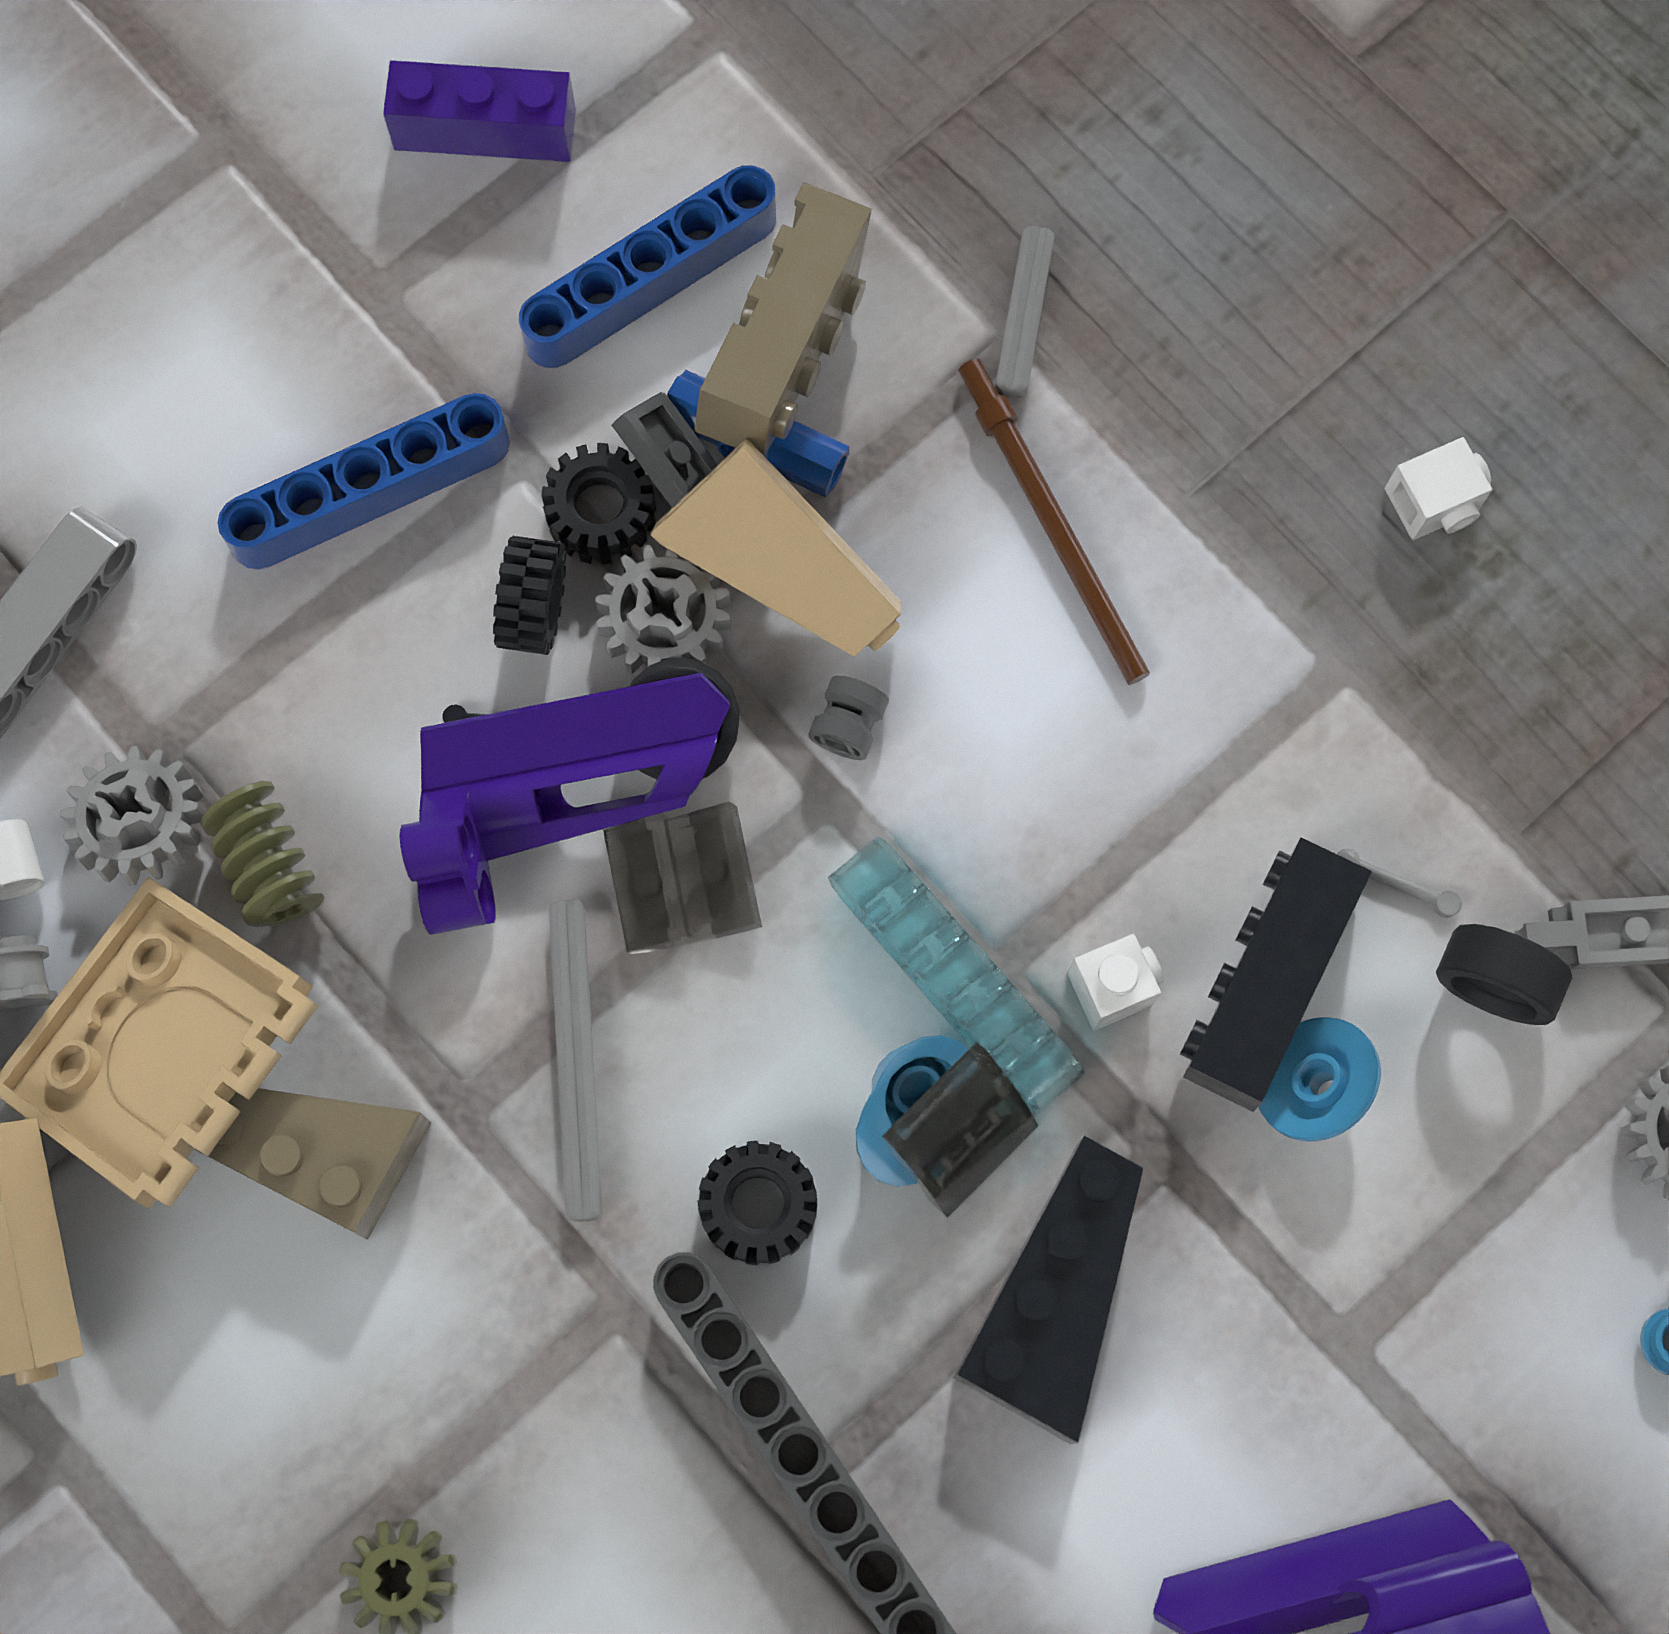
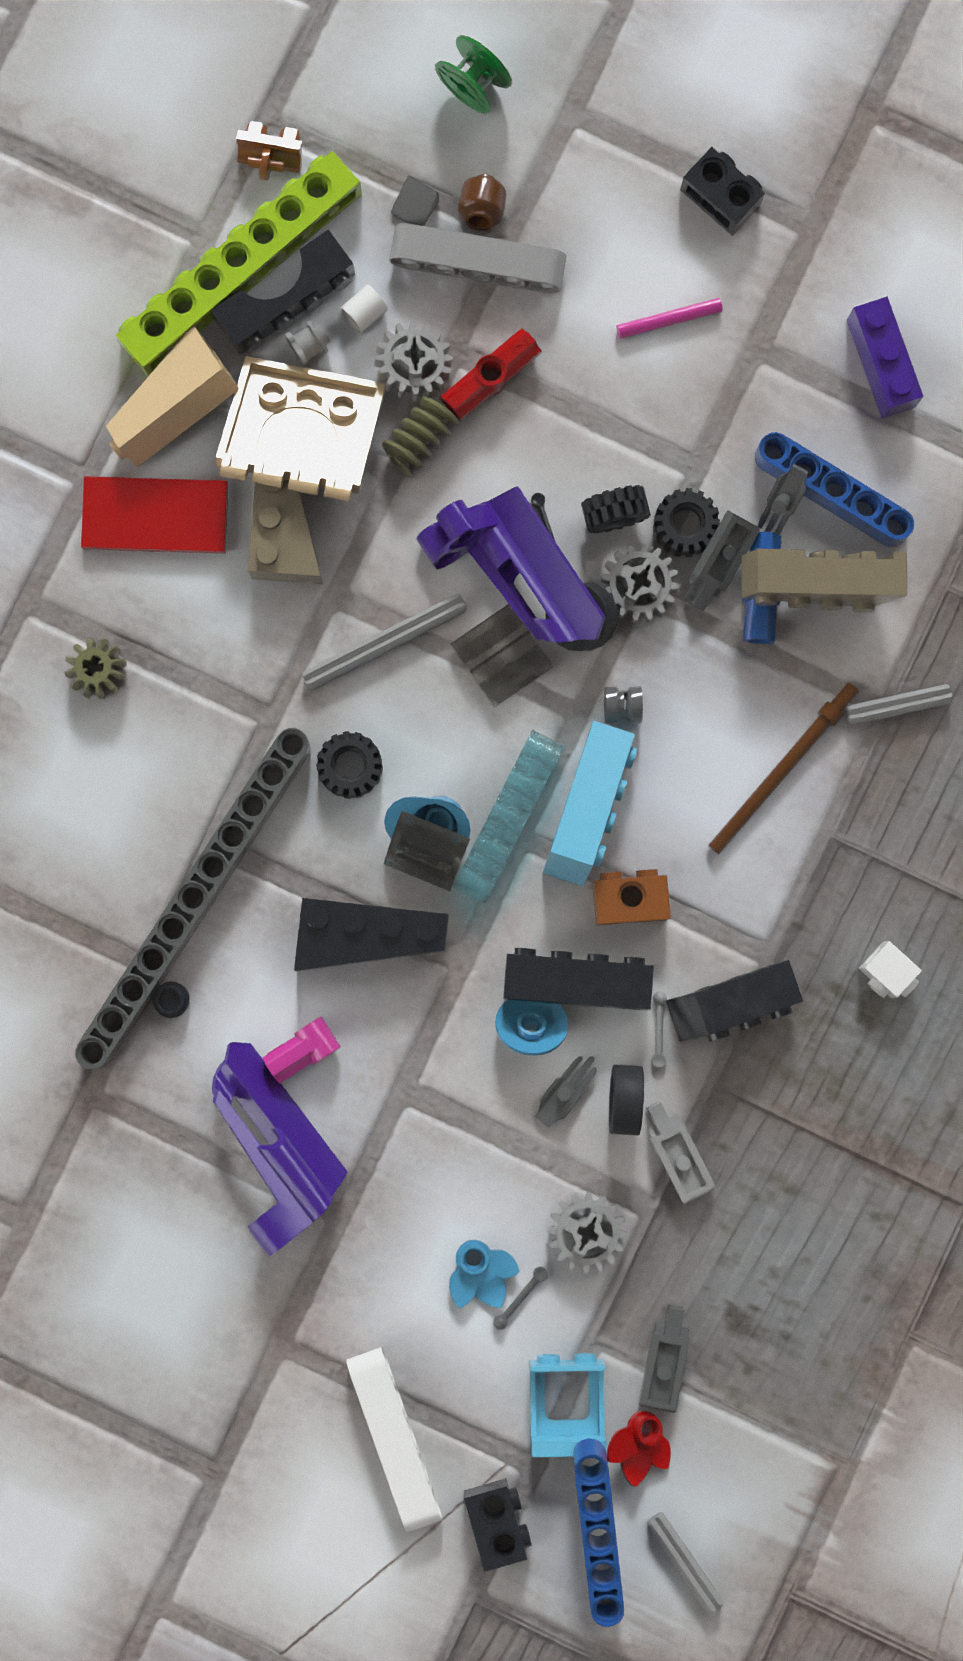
camera: 65 degrees right, 10 degrees up
(109, 251) = (714, 197): none -> black brick
(179, 1363) = (154, 515): none -> red tile
(206, 669) = (506, 359): none -> red piece
(262, 400) = (669, 318): none -> dark pink bar
(334, 476) = (639, 378): blue beam -> none
(630, 336) = (784, 498): none -> dark grey piece
(776, 548) = (693, 630): tan slope -> none
(992, 833) = (589, 804): none -> medium azure wedge
(1116, 981) = (539, 900): white brick -> none
(1192, 804) = (652, 906): none -> dark orange brick
(1211, 1472) = (307, 1047): none -> dark pink piece
(1405, 742) = (735, 1003): none -> black wedge
(1449, 1079) = (562, 1095): none -> dark grey piece

